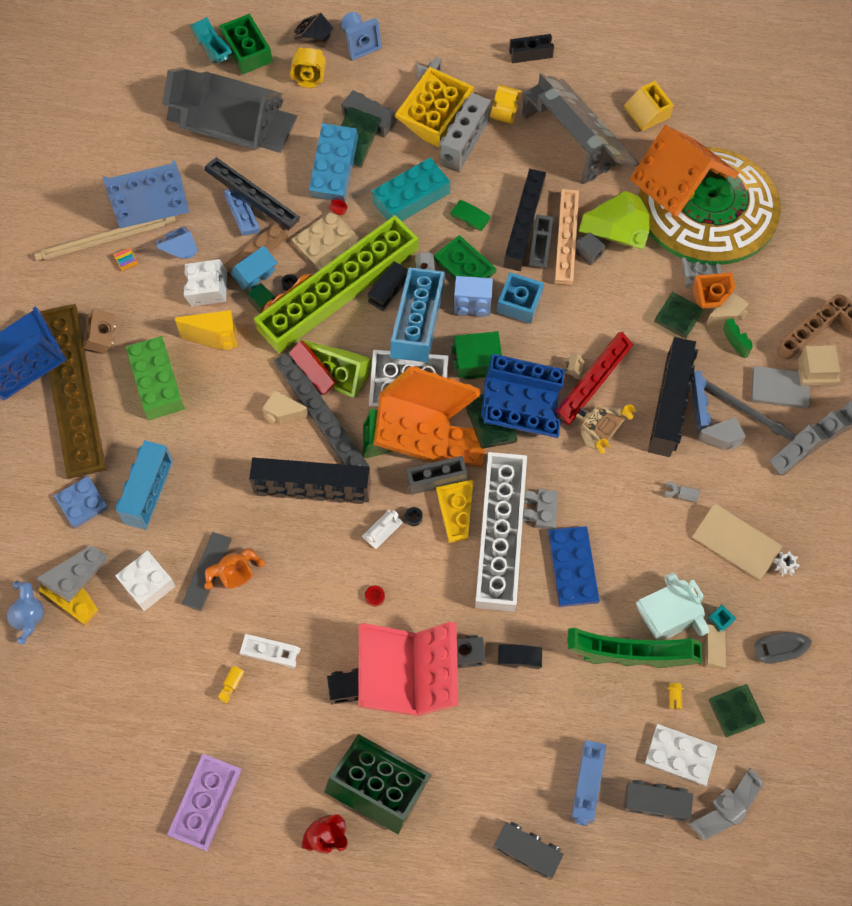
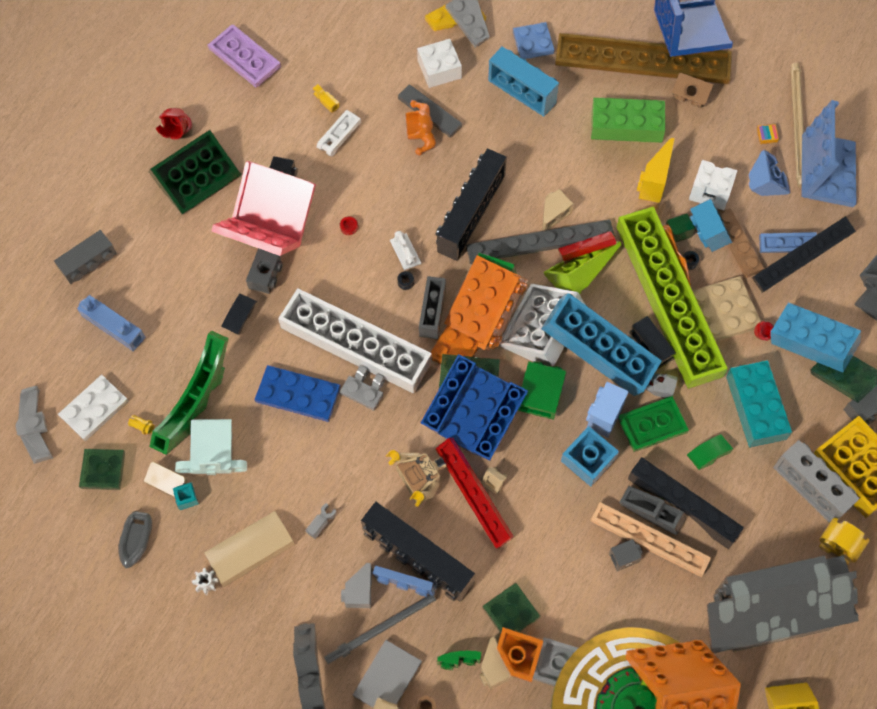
camera: 115 degrees right, 0 degrees up
(455, 509) = (395, 315): yellow wing -> none
(619, 220) = (645, 597): lime brick -> none
(658, 801) = (66, 369): dark grey brick -> none

